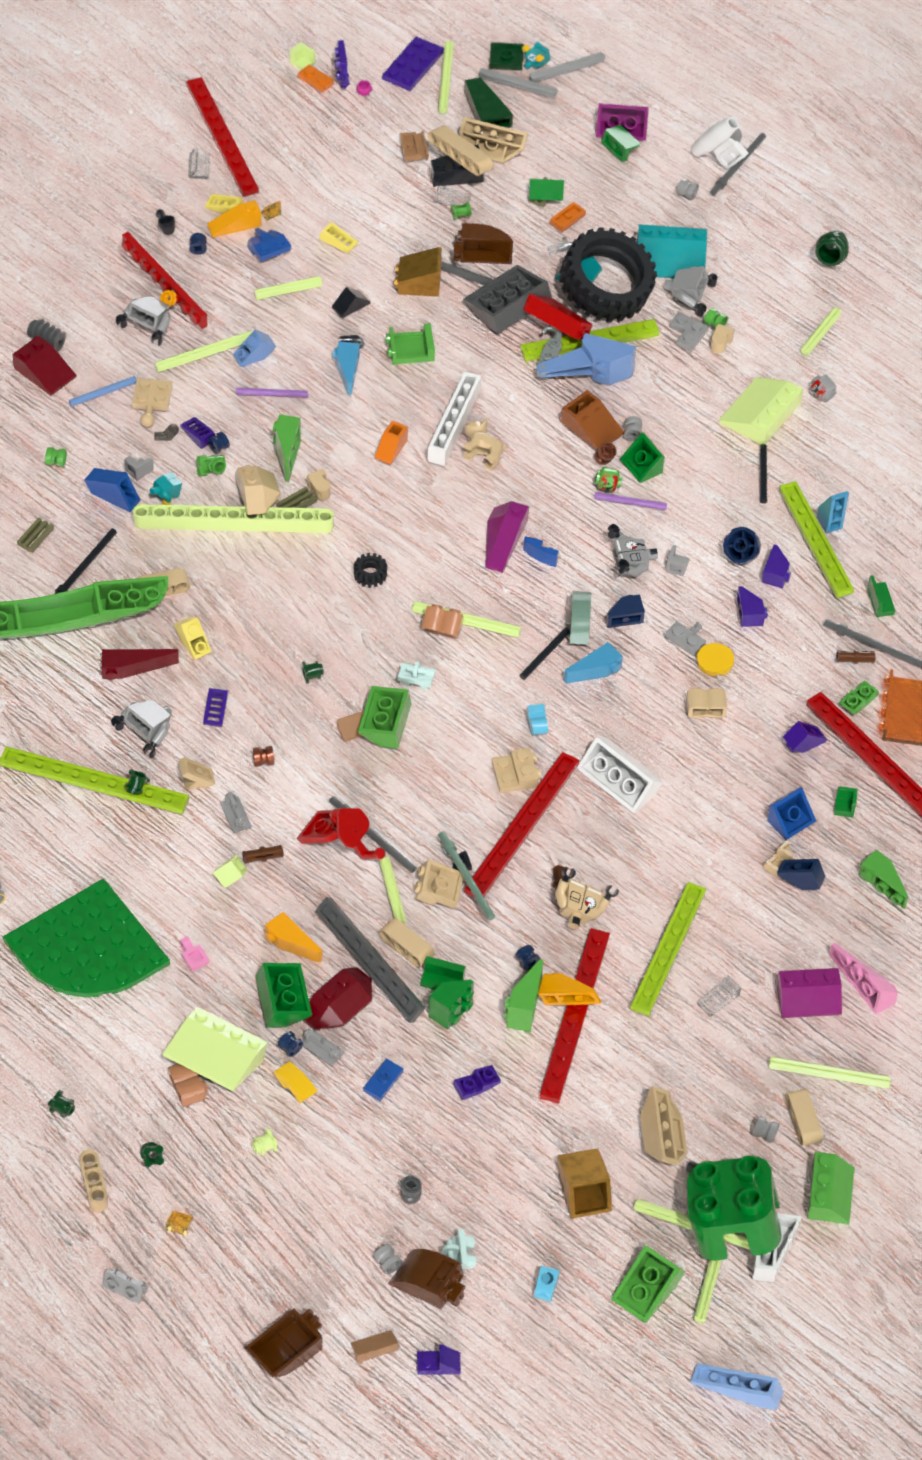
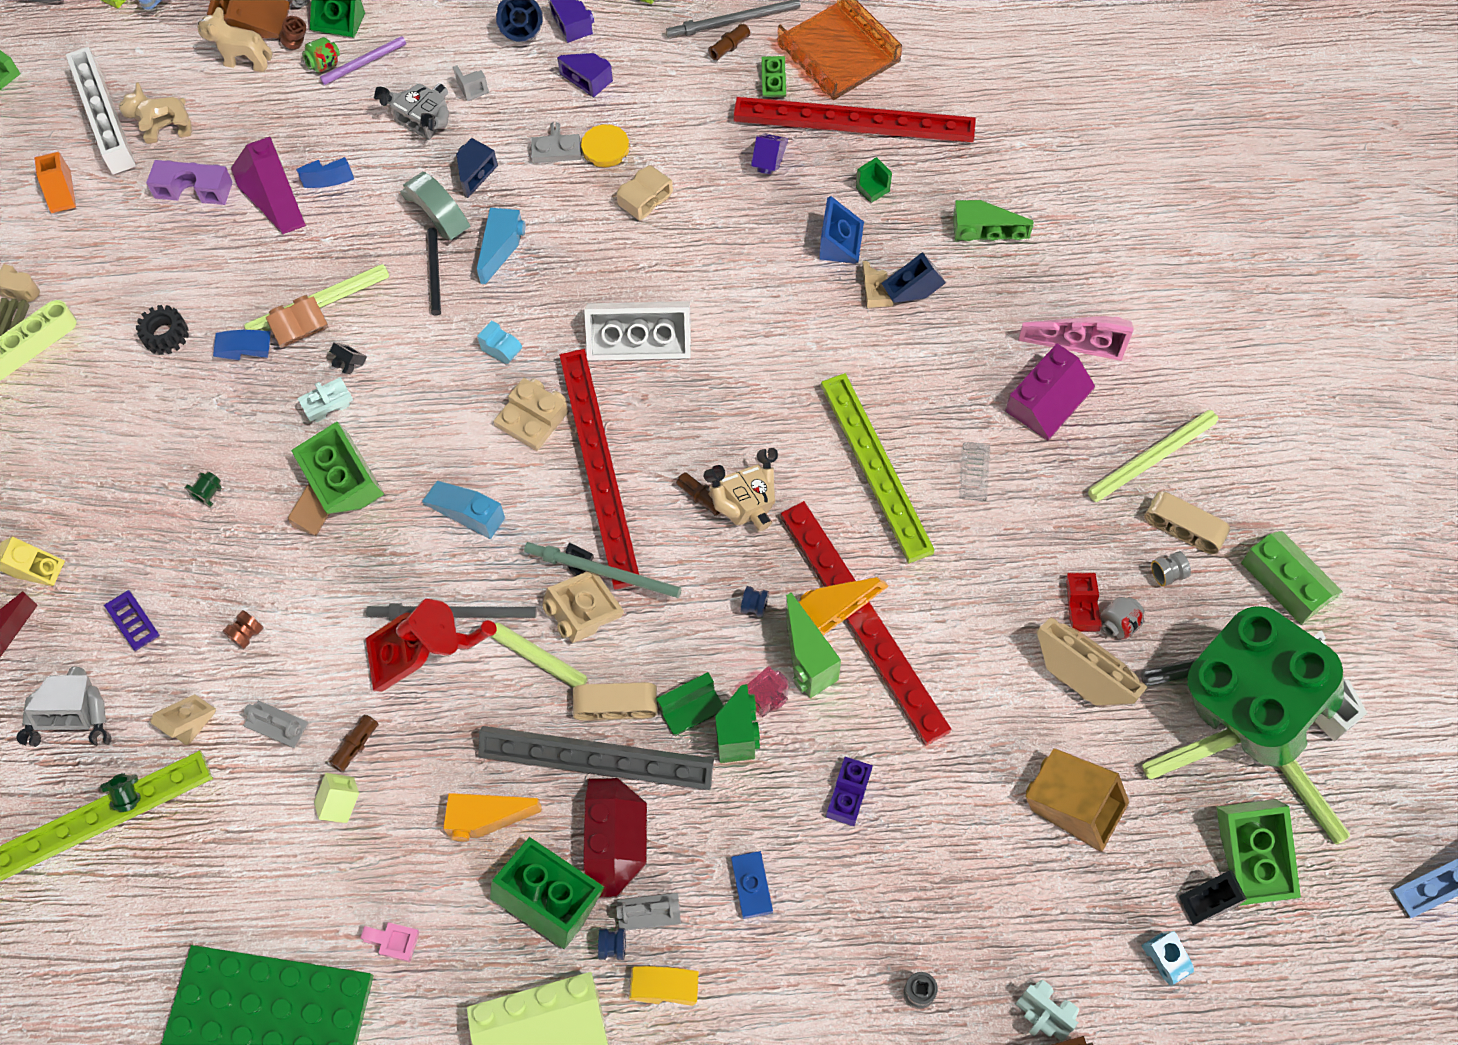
camera: 40 degrees left, 10 degrees up
(404, 610) = (237, 342): none -> blue slope
(432, 790) = (466, 507): none -> dark azure slope
(451, 660) = (348, 355): none -> black tile
(454, 488) = (170, 178): none -> medium lavender arch
(486, 1002) = (769, 691): none -> clear pink brick
(565, 434) = (234, 41): none -> tan animal
(599, 1281) = (1213, 898): none -> black slope
(701, 1105) = (1083, 602): none -> red slope
(710, 1128) = (1122, 617): none -> light grey head

